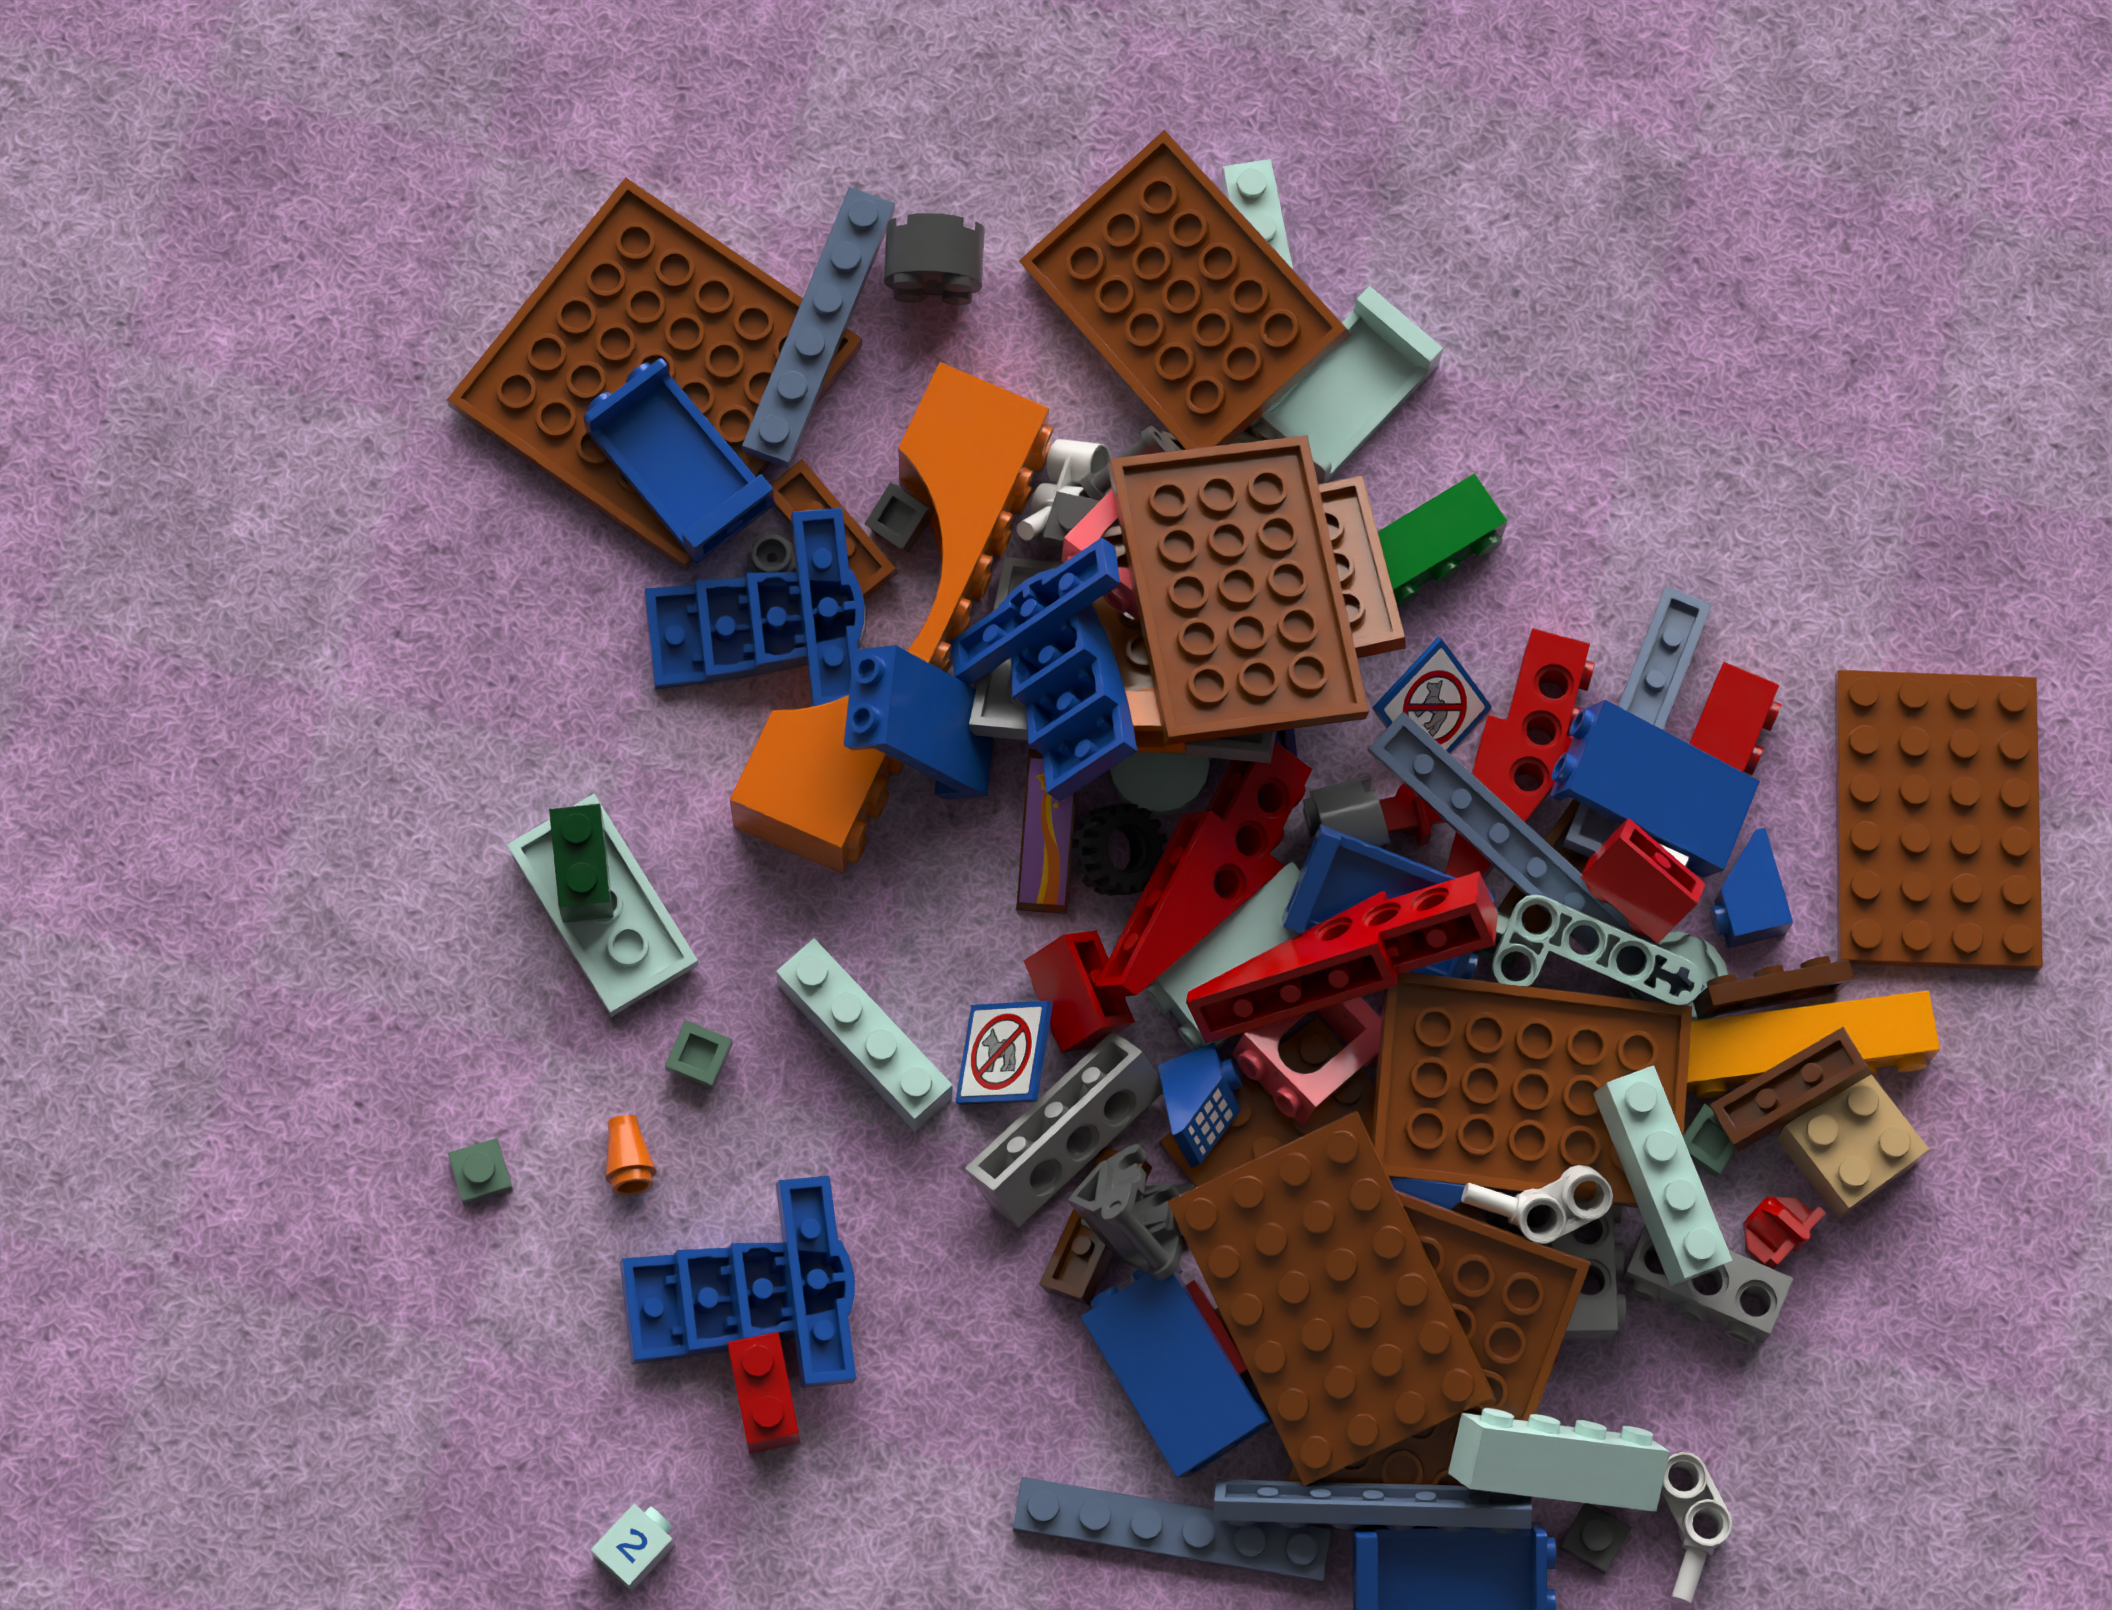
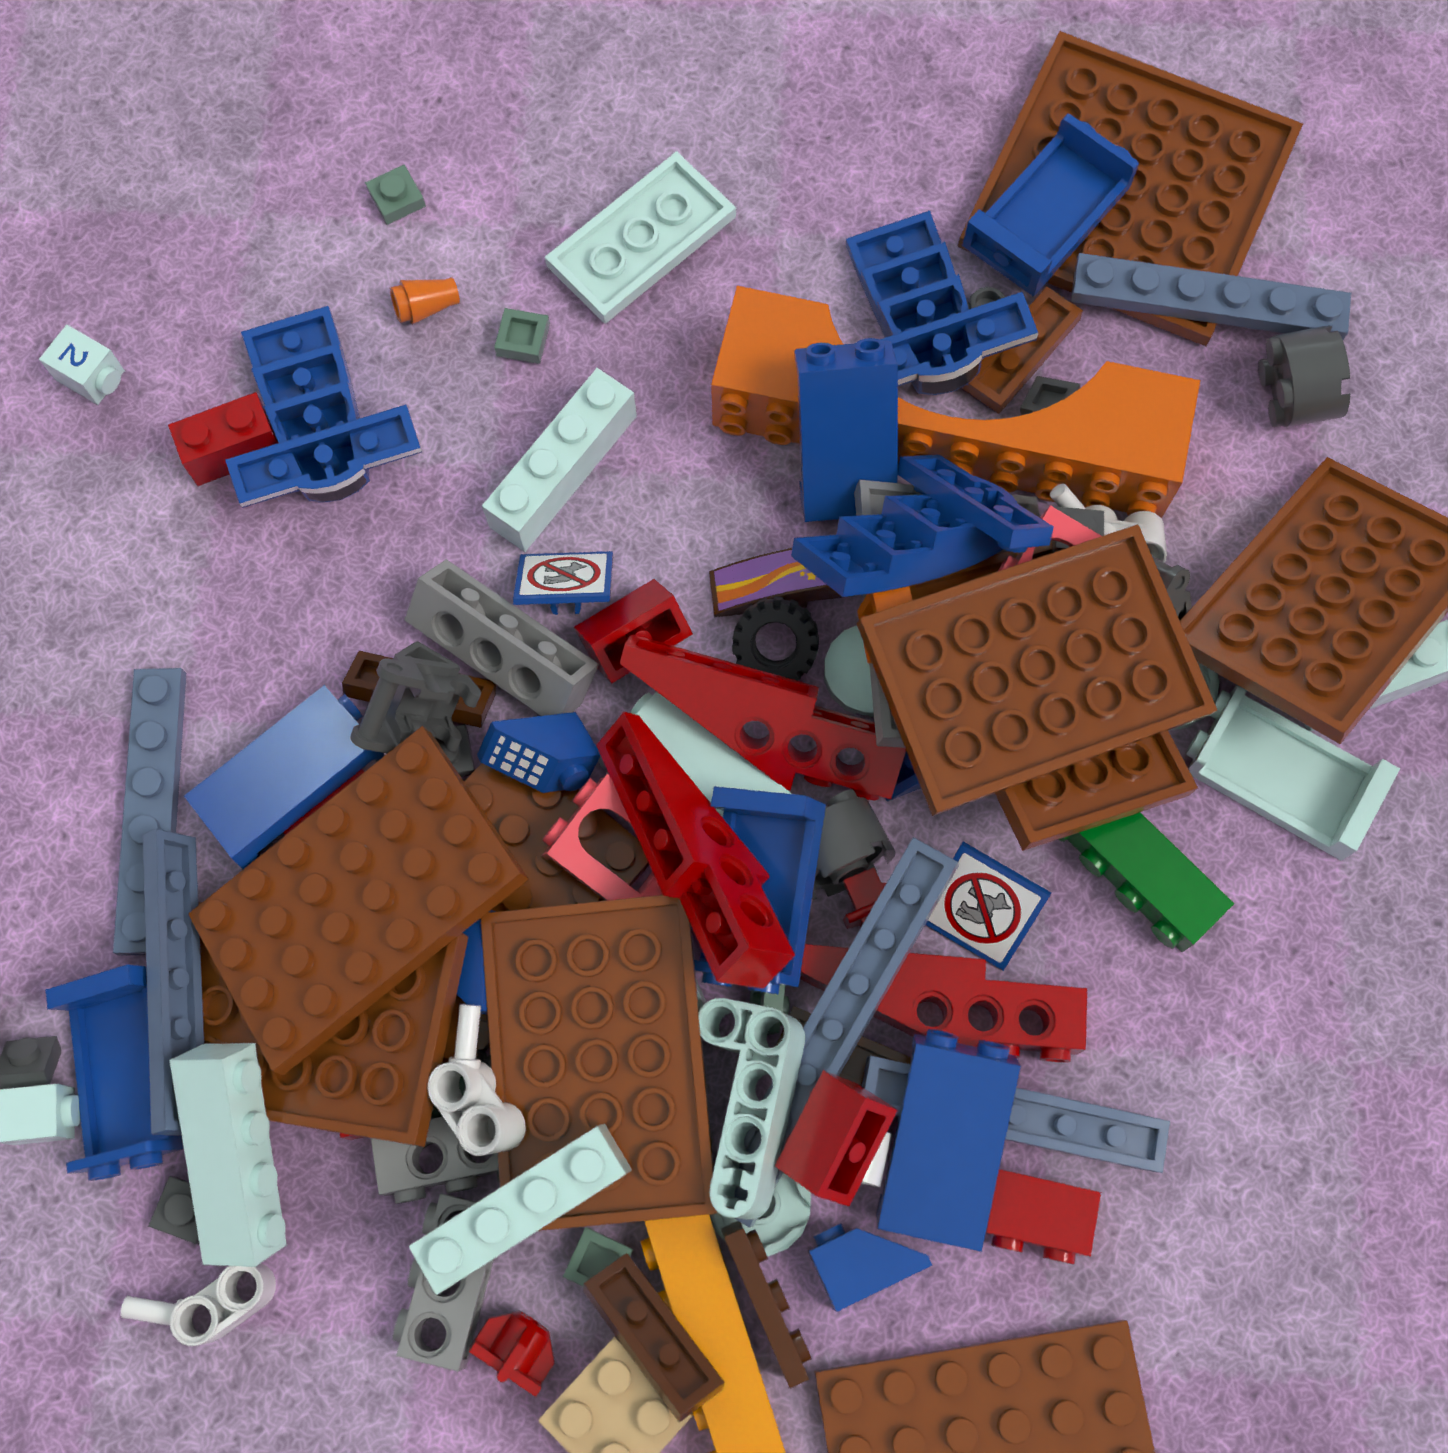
camera: 85 degrees right, 0 degrees up
(581, 863) = (664, 196): dark green brick -> none

